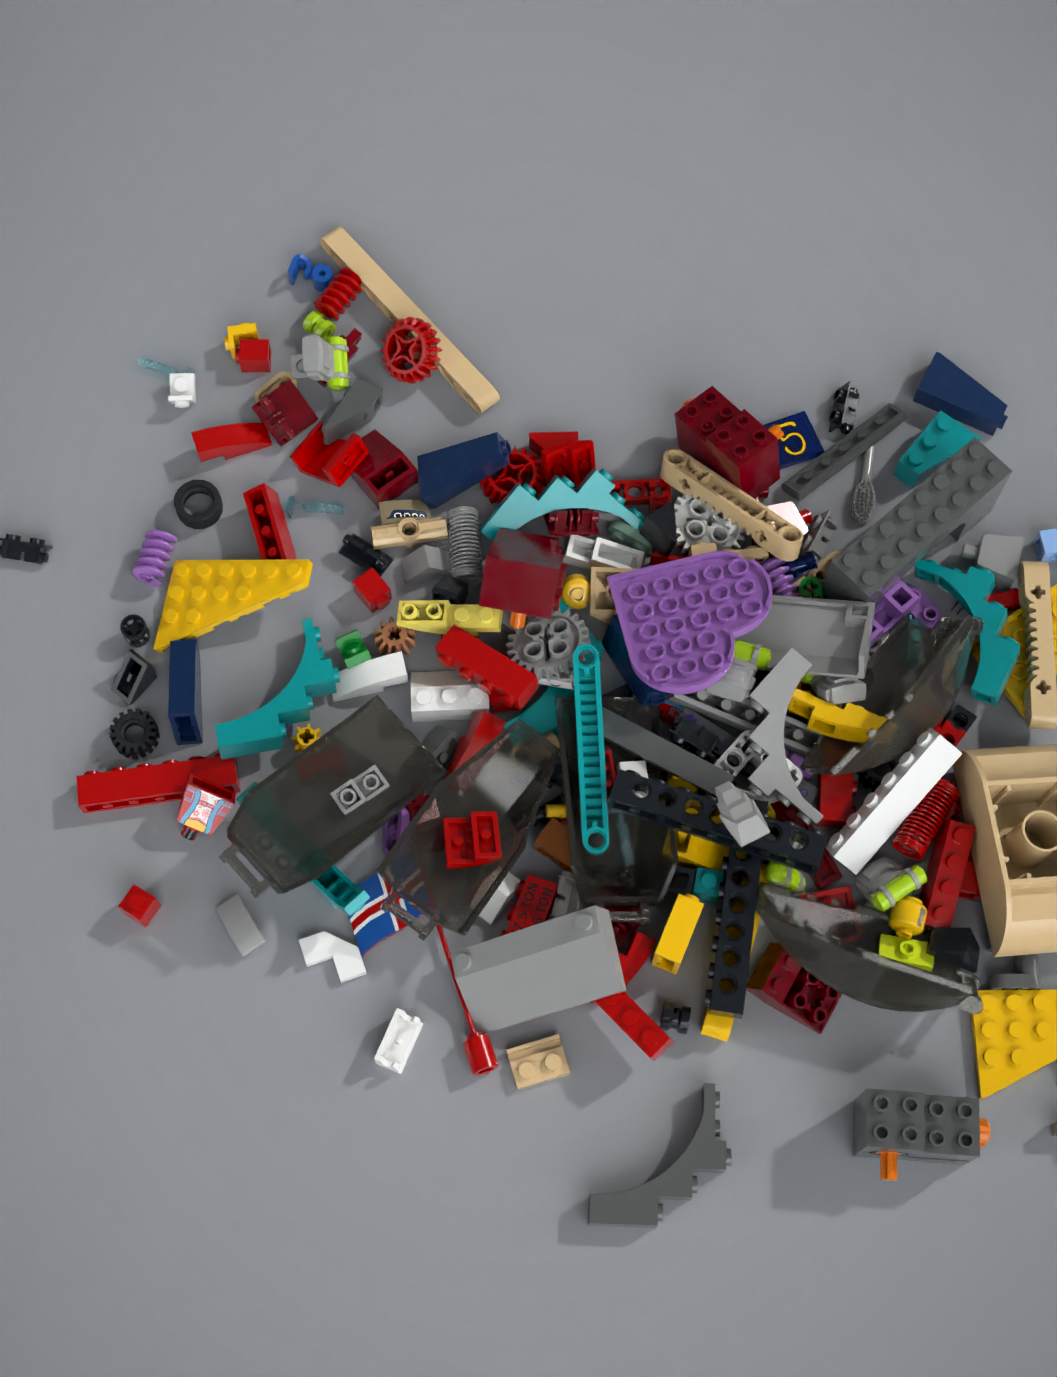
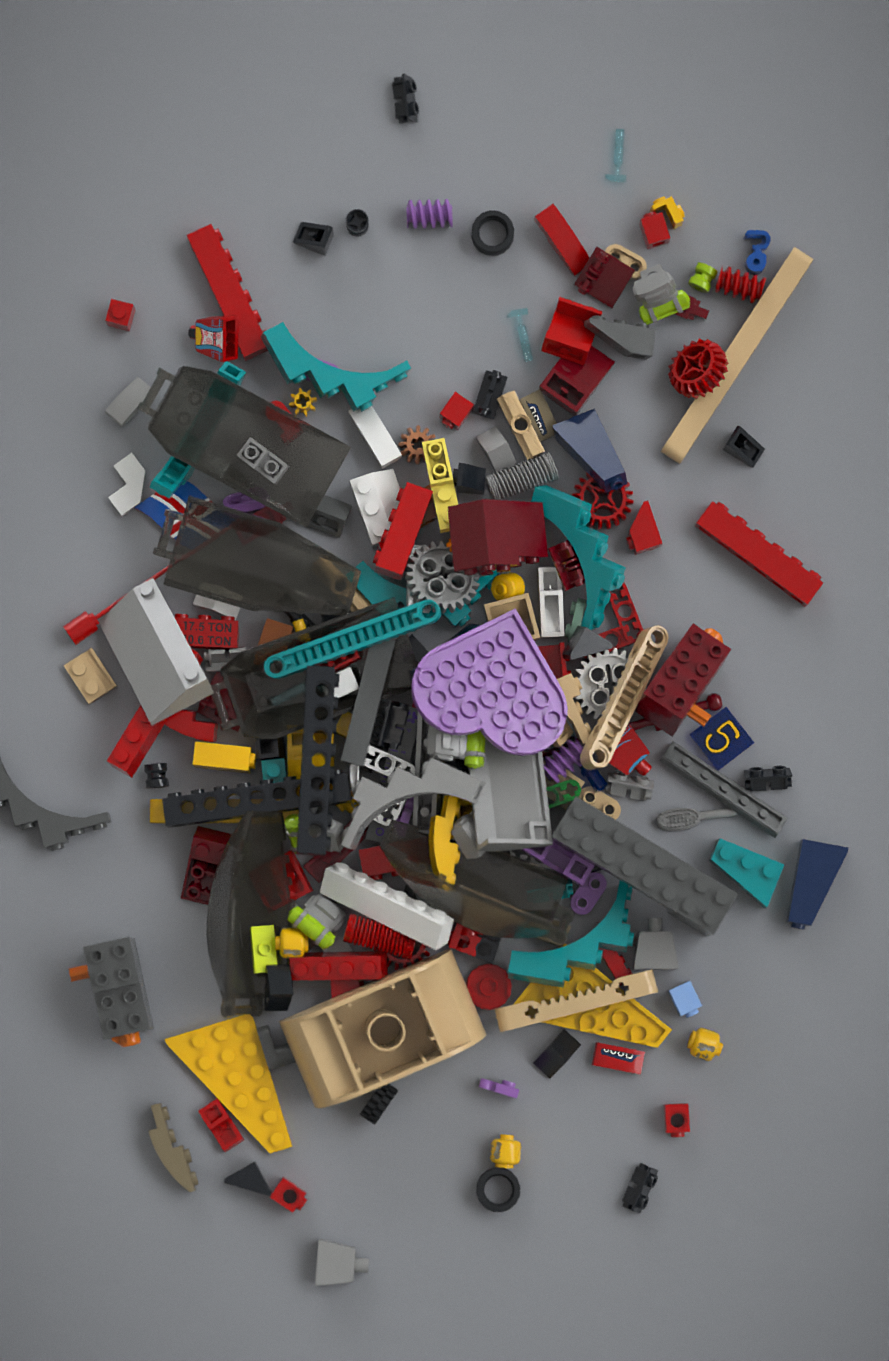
camera: 70 degrees right, 15 degrees up
(126, 721) = (266, 269): black tyre -> none
(182, 389) = (599, 178): white bracket -> none
(185, 692) = (315, 284): dark blue slope -> none
(223, 590) = (411, 281): yellow wing -> none
(269, 523) = (479, 307): red brick -> none
(352, 649) = (395, 413): green bracket -> none
(398, 1041) = (72, 559): white hinge -> none
(471, 840) = (251, 565): red slope -> none
(481, 731) = (341, 544): red slope -> none
(500, 339) = (744, 447): none -> black slope
(568, 459) = (627, 545): red slope -> none
(614, 353) = (759, 554): none -> red brick
(740, 814) = (314, 774): light grey connector -> none
(996, 729) = (489, 986): none -> red tile

